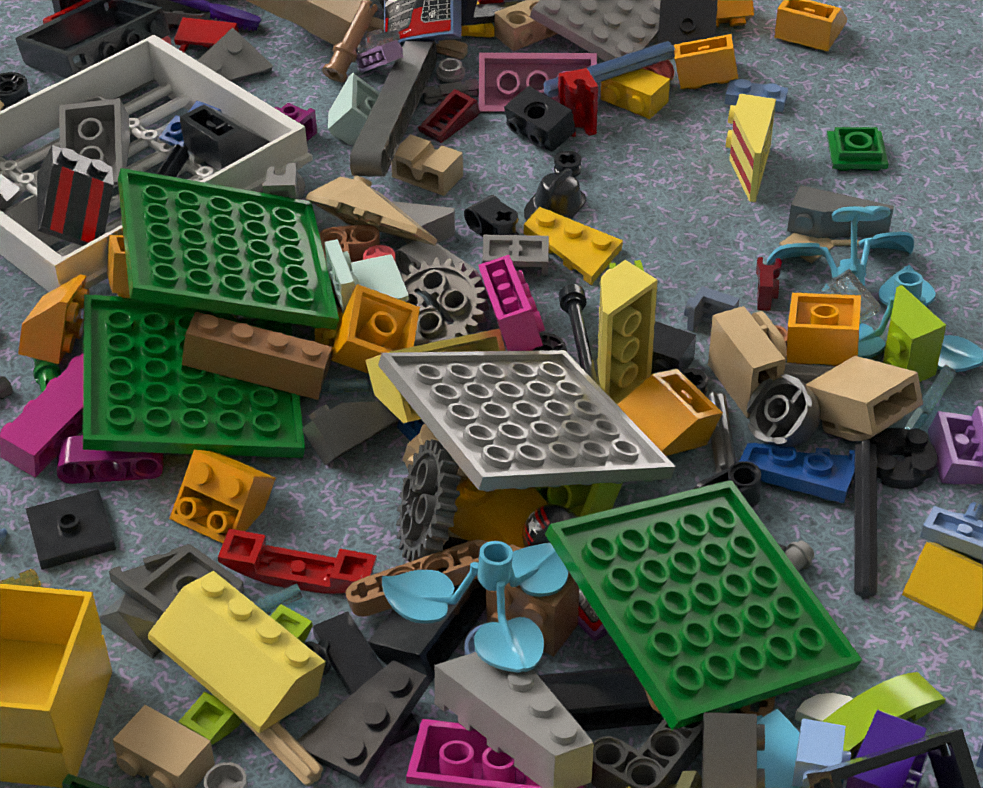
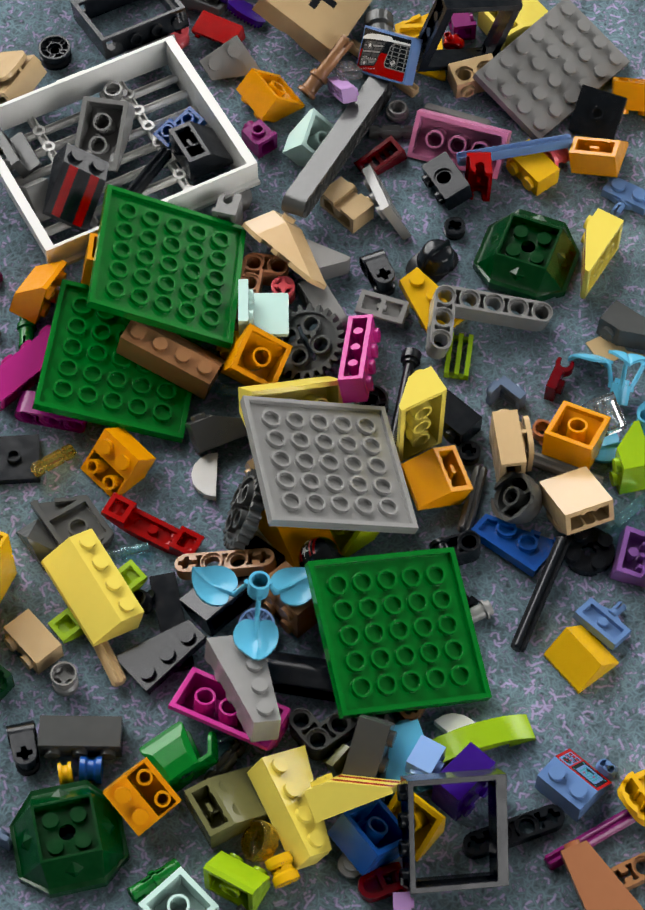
camera: 15 degrees right, 15 degrees up
(127, 514) = (53, 460): none -> clear yellow axle
(287, 83) = (268, 95): none -> light orange slope
(350, 488) = (205, 476): none -> white tile
(475, 150) = (382, 198): none -> light grey wing
(608, 225) = (479, 312): none -> light grey beam
(669, 169) = (532, 275): none -> dark green piece

